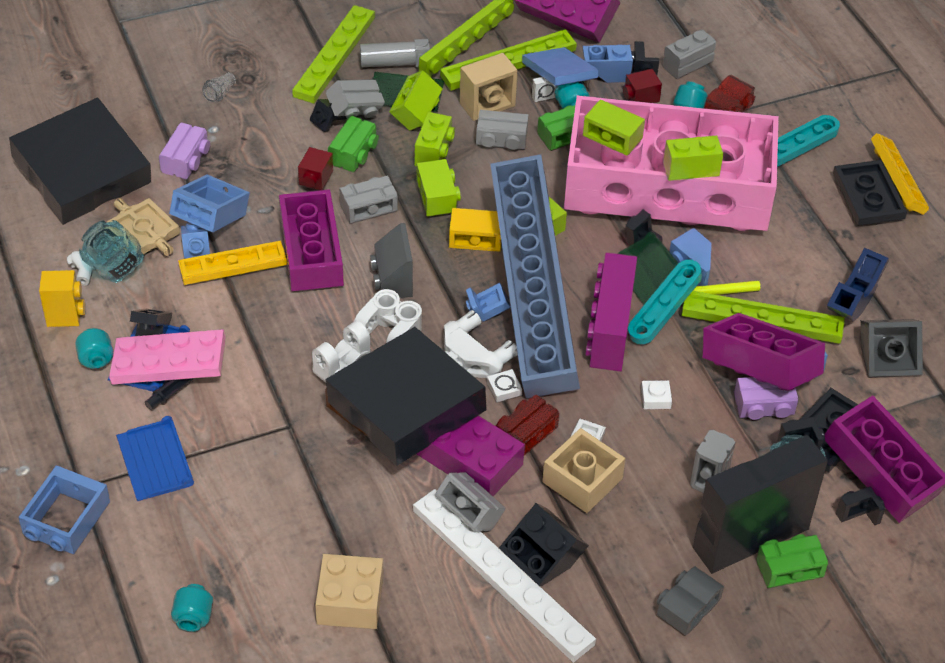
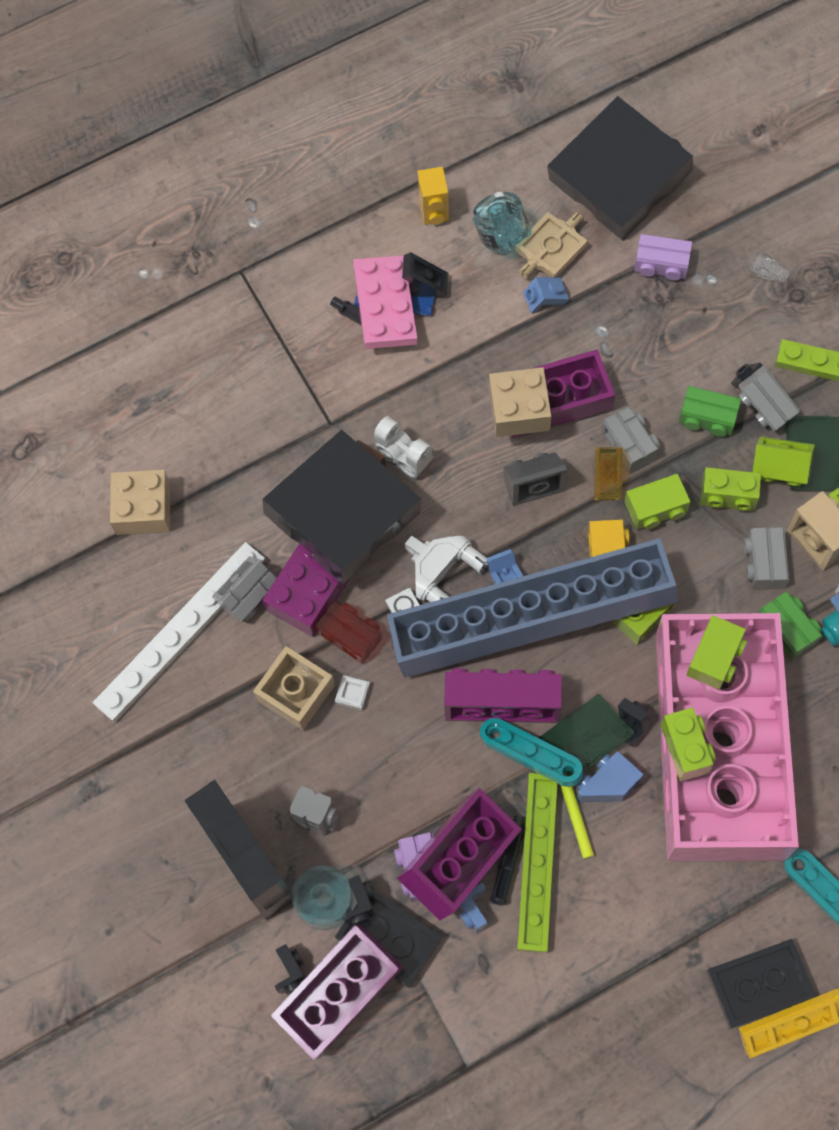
camera: 90 degrees right, 20 degrees up
(71, 485) = (210, 242): medium blue window -> none
(94, 348) = (386, 239): teal head -> none
(155, 459) = (277, 320): blue piece -> none
(192, 607) = (112, 380): teal head -> none
(208, 204) = (594, 276): medium blue window -> none
(232, 262) = (517, 327): yellow plate -> none
(315, 168) = (658, 380): dark red brick -> none
(327, 246) = (519, 402): none -> tan brick
(387, 311) = (454, 502): white piece -> none
(394, 212) = (608, 473): none -> clear yellow slope
(543, 545) = (207, 662): black slope -> none
(656, 395) = (414, 756): white plate -> none
(689, 599) = (159, 801): dark grey brick -> none
(791, 560) = (214, 899): bright green brick -> none
(854, 295) = (586, 964): dark blue arch -> none
(892, 347) = (515, 1006): dark grey slope -> none

